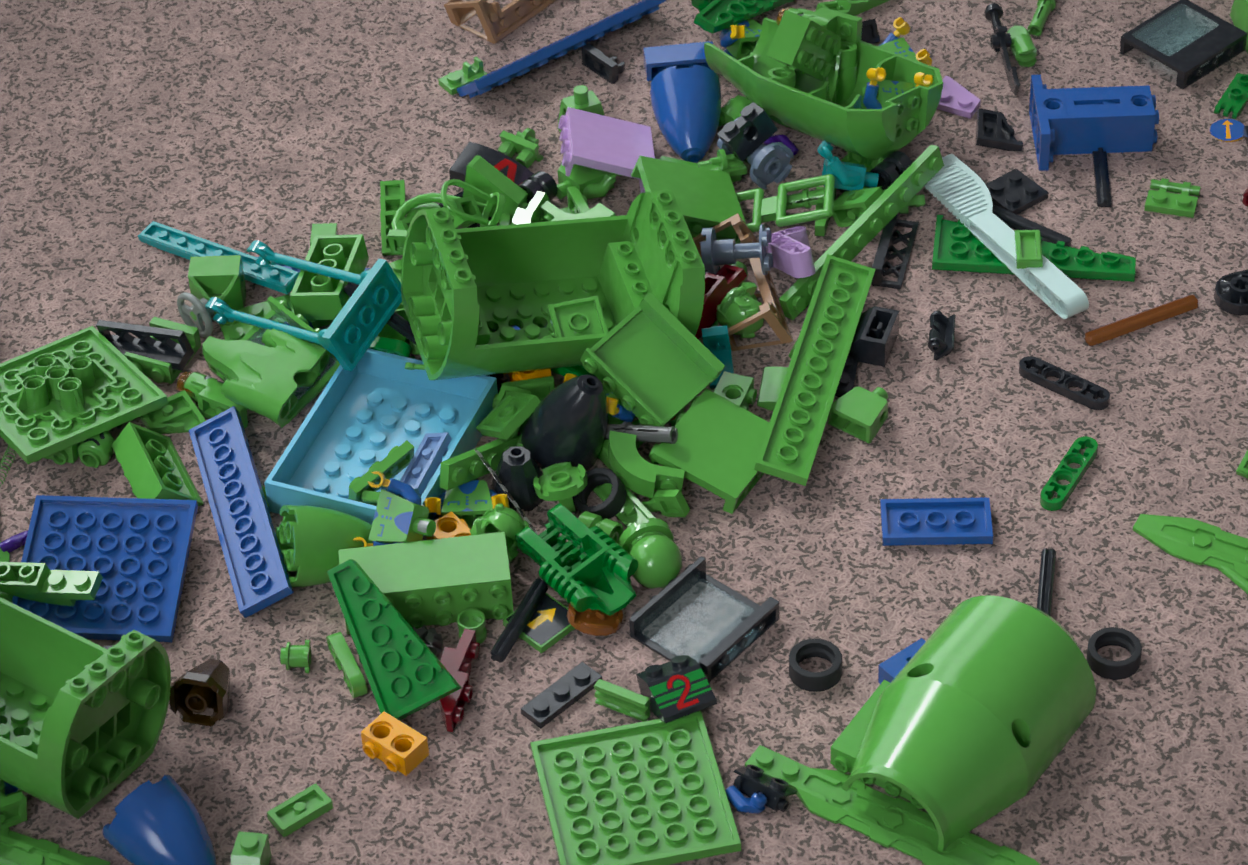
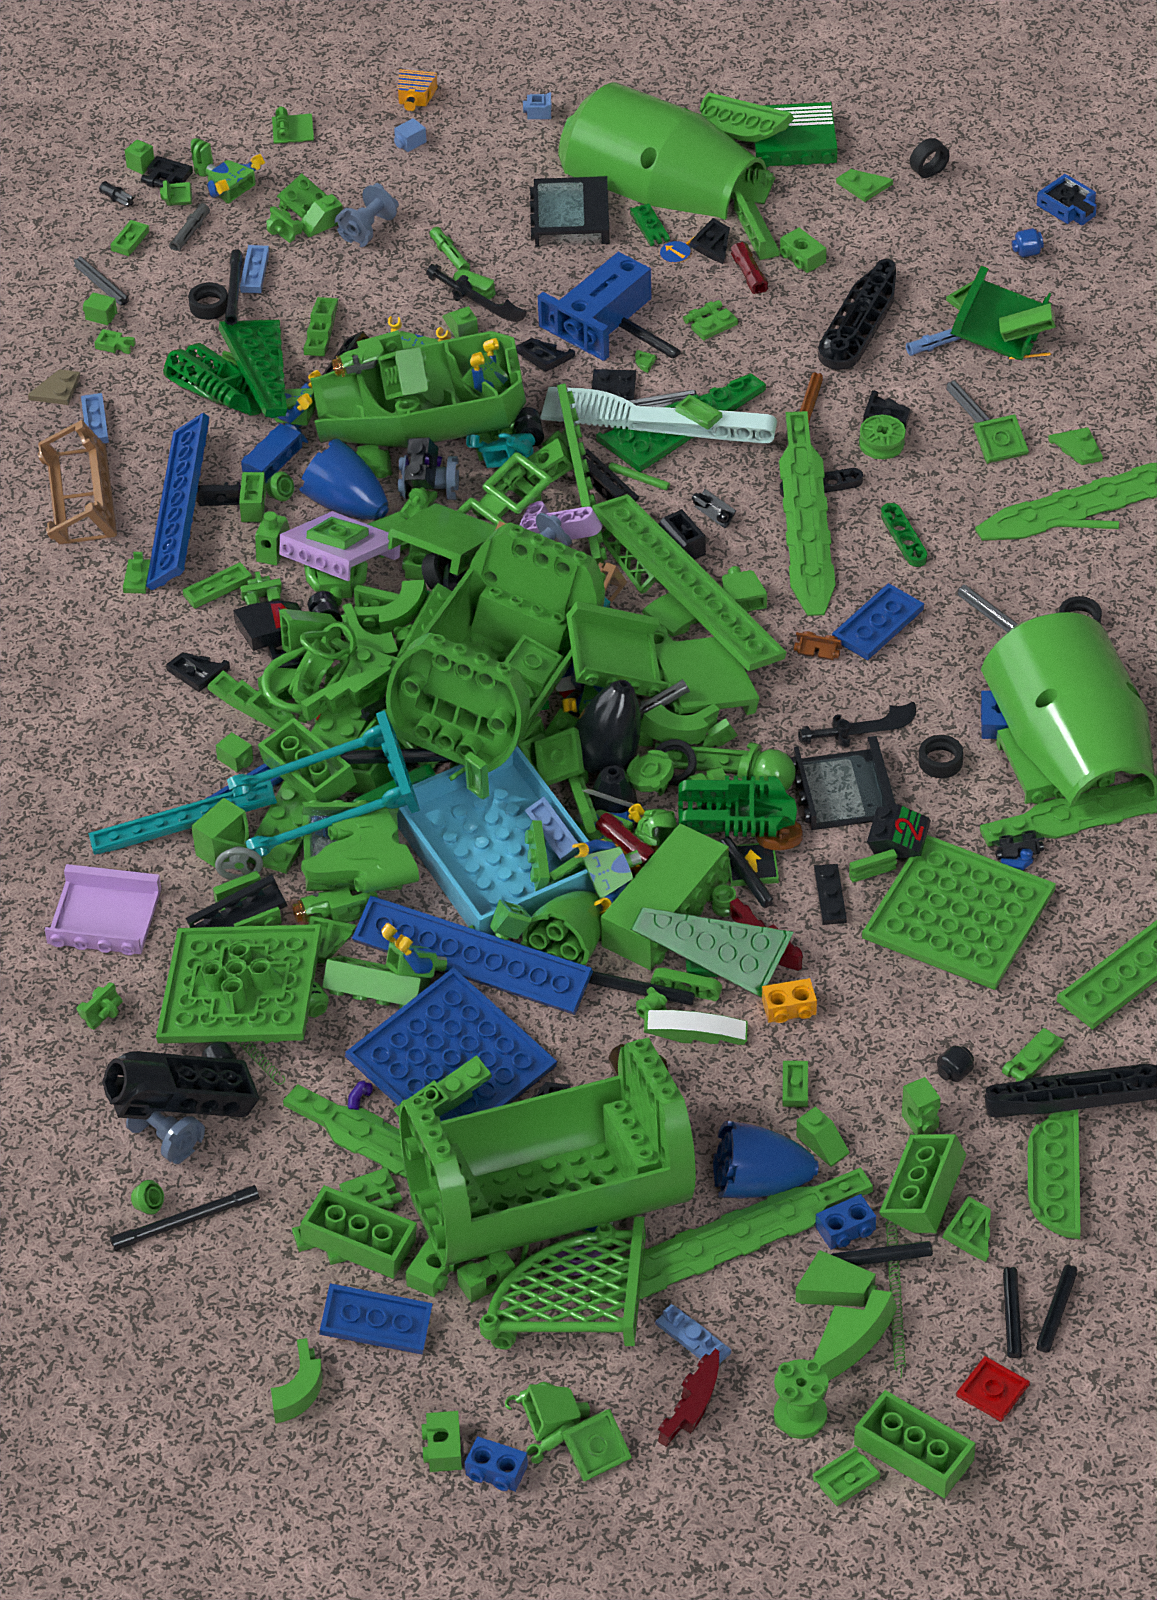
camera: 50 degrees left, 5 degrees up
(79, 281) = (104, 910): none -> lavender panel
(182, 468) = (410, 959): none -> torso
(278, 492) = (509, 920): none -> bright green slope
(300, 700) = (690, 1025): none -> white slope
(312, 632) = (640, 987): none -> black axle
(394, 165) = (196, 670): none -> black wing
(410, 372) = (477, 775): none -> bright green tile
(462, 502) = (619, 834): none -> dark red axle
(496, 121) = (217, 585): none -> bright green plate
(608, 135) = (337, 533): none -> bright green tile
(615, 78) = (252, 496): none -> bright green brick
(645, 78) = (280, 486): none -> bright green cone
(835, 608) = (896, 718): none -> black sword
(852, 493) = (809, 642): none -> dark orange hinge
(927, 271) = (639, 476): none -> bright green bar
(965, 66) = (462, 322): none -> bright green slope
(1008, 394) = (806, 518): none -> bright green plate
(1070, 191) = (645, 360): none -> bright green tile
(1169, 383) = (882, 437): none -> bright green wheel
(1206, 367) = (888, 407): none -> black wing

